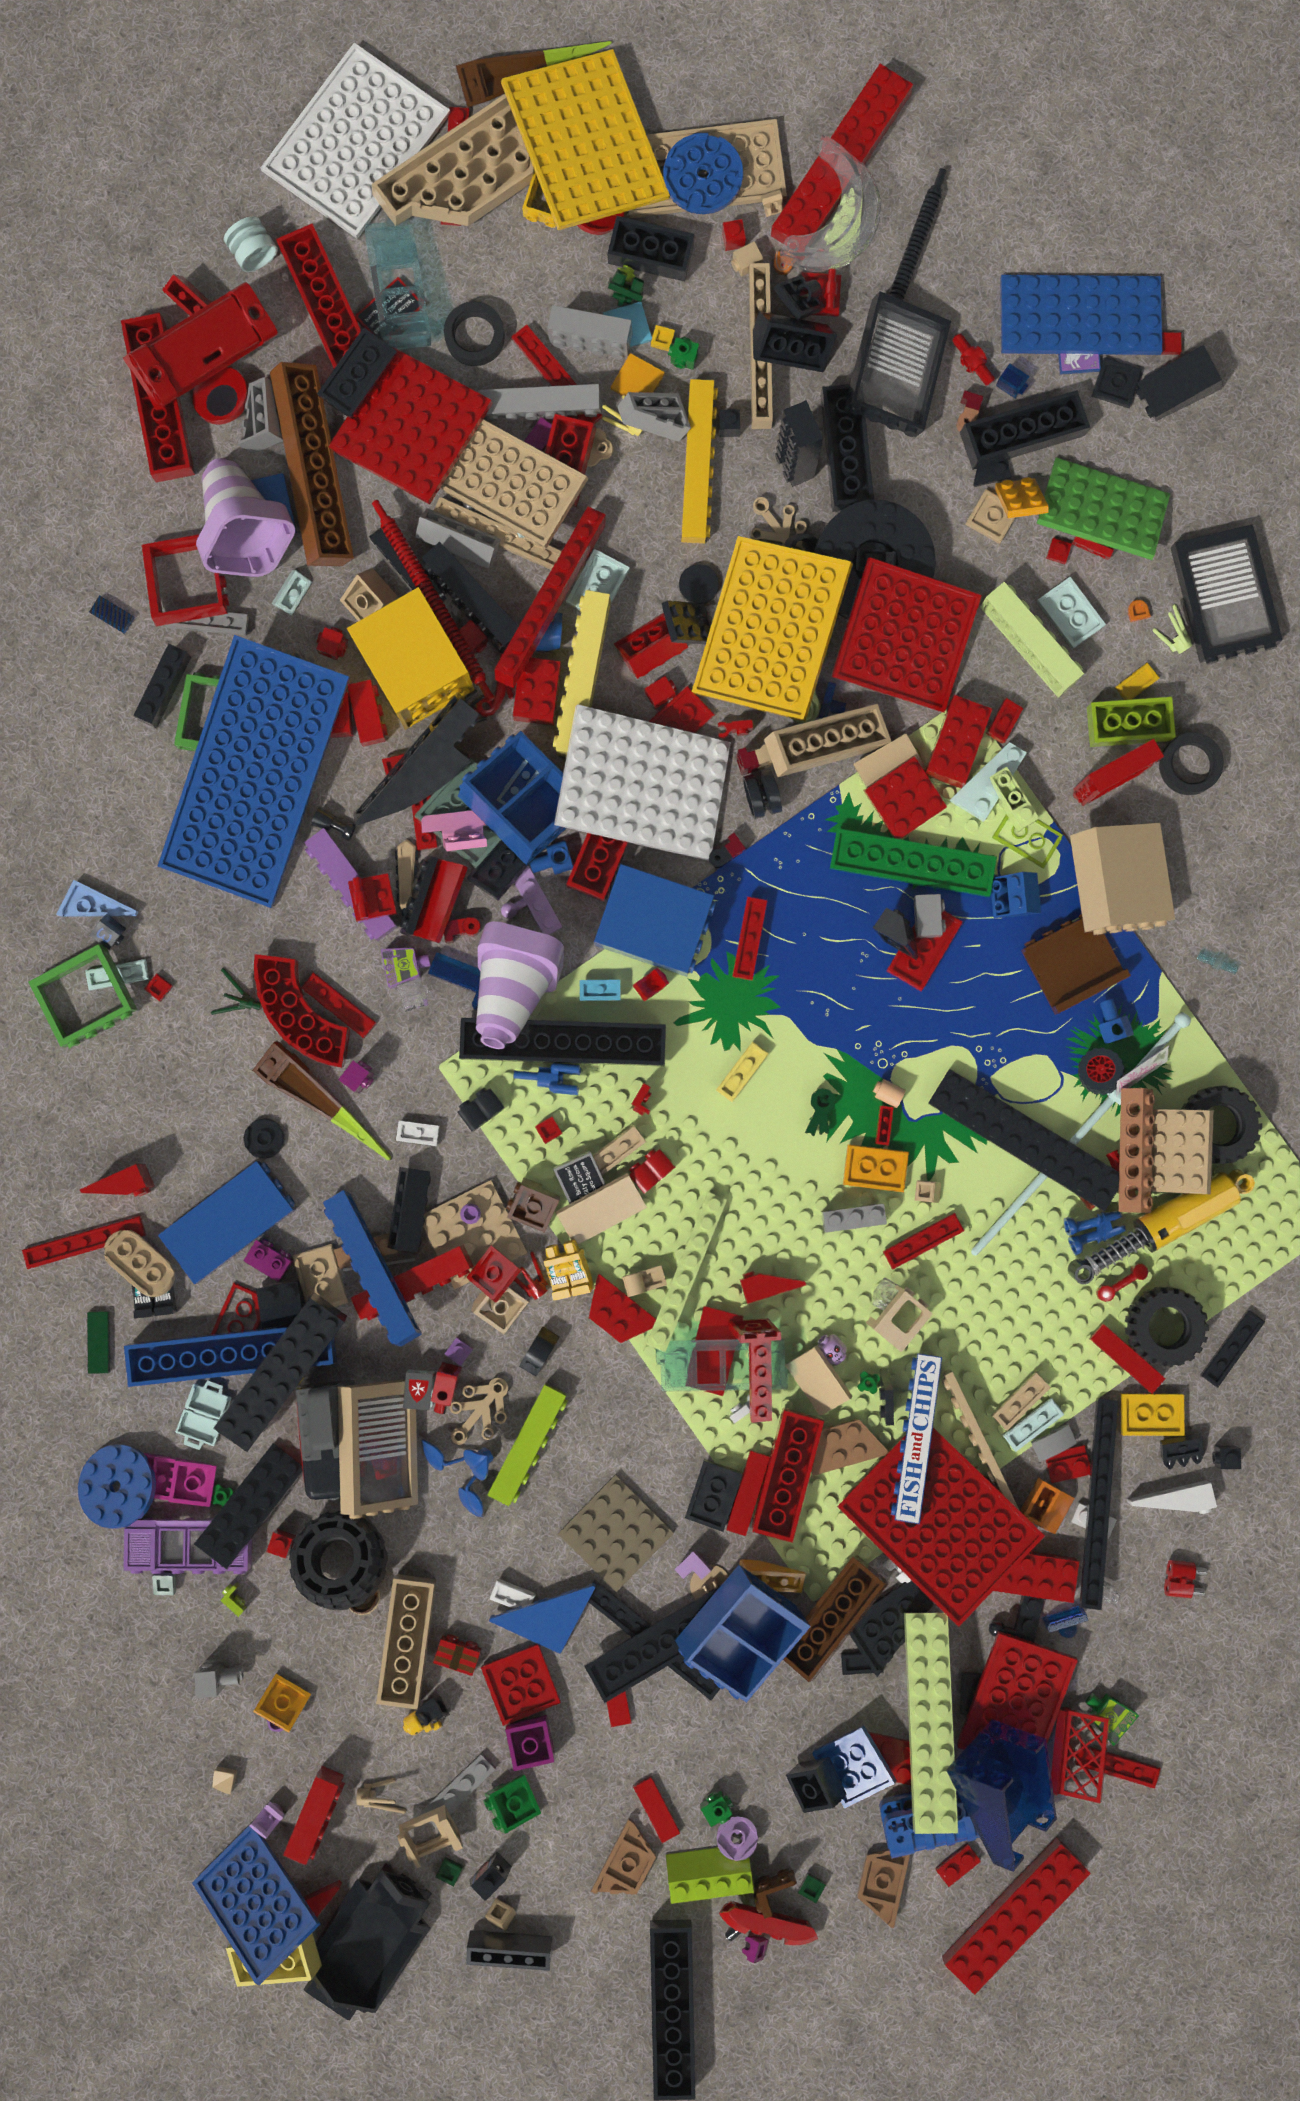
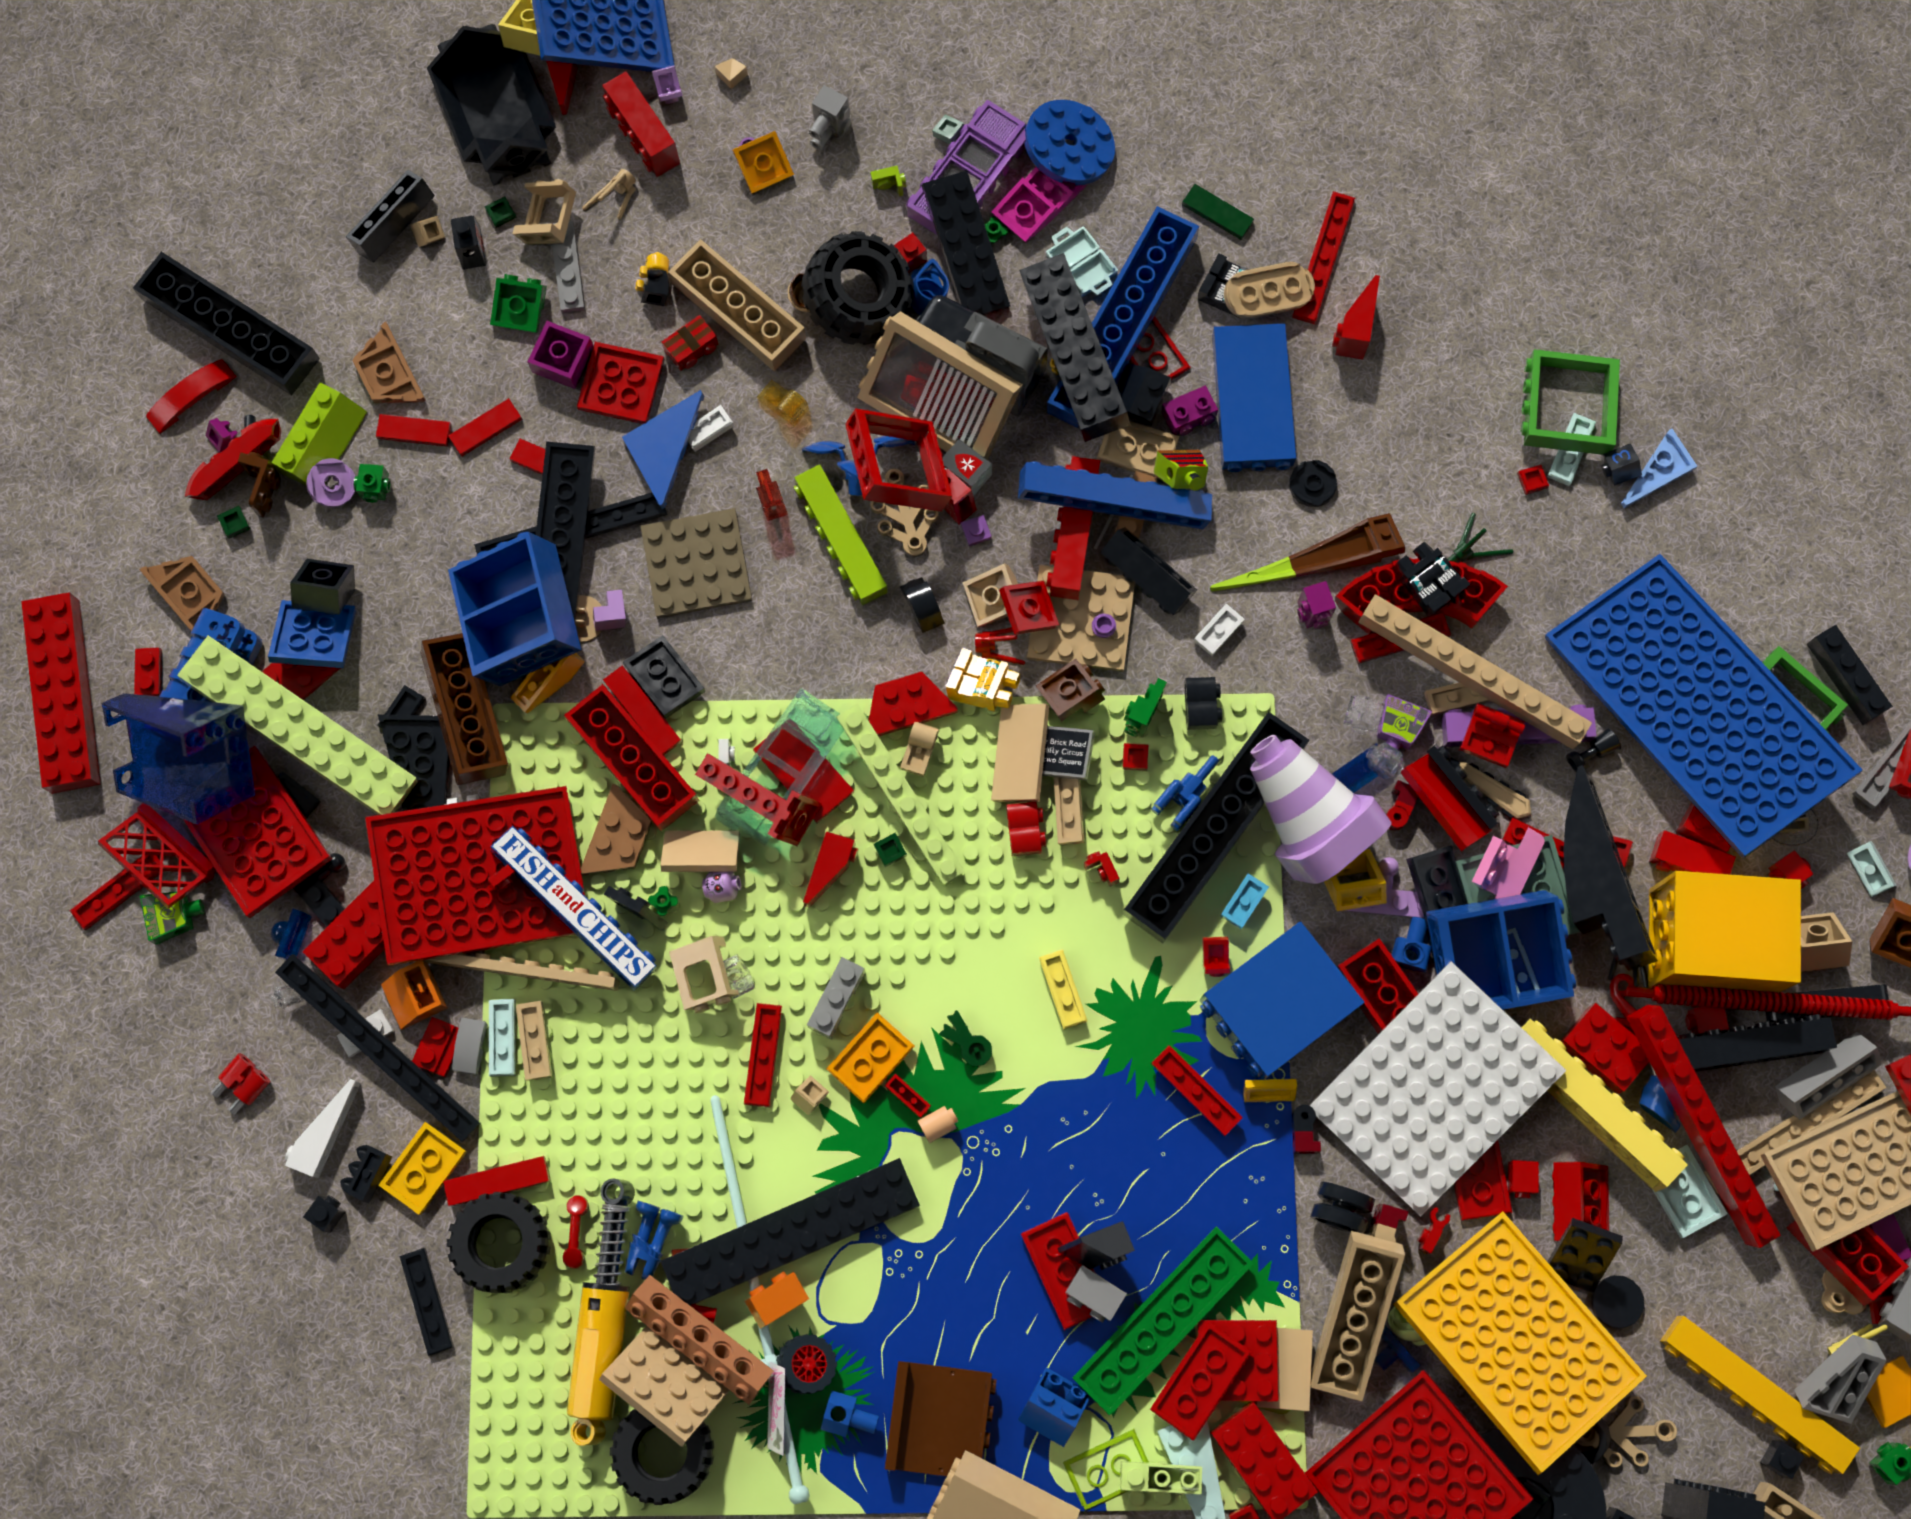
camera: 125 degrees right, 10 degrees down
(287, 1007) = (1431, 580): none -> black hips
(300, 1511) = (928, 285): none -> blue helmet
(318, 1235) = (1181, 468): none -> lime torso
(335, 937) = (1475, 672): none -> tan brick
(351, 936) = (1452, 697): none -> tan plate
(438, 958) = (1385, 760): none -> clear head
(456, 1555) = (786, 404): none -> clear yellow plate
(491, 1437) = (867, 422): none -> red window
(518, 1145) = (1142, 711): none -> green plate
(534, 1514) = (770, 496): none -> clear red piece
(539, 908) = (1372, 890): none -> yellow window
(619, 1758) = (485, 427): none -> red tile
(715, 888) = (1270, 1090): none -> yellow tile
(728, 1252) = (890, 849): none -> dark green plate
(740, 1996) = (188, 392): none -> red slope
(934, 1500) = (501, 879): none -> red plate
(935, 813) = (1201, 1380): none -> red tile
(1075, 1119) = (777, 1299): none -> orange brick

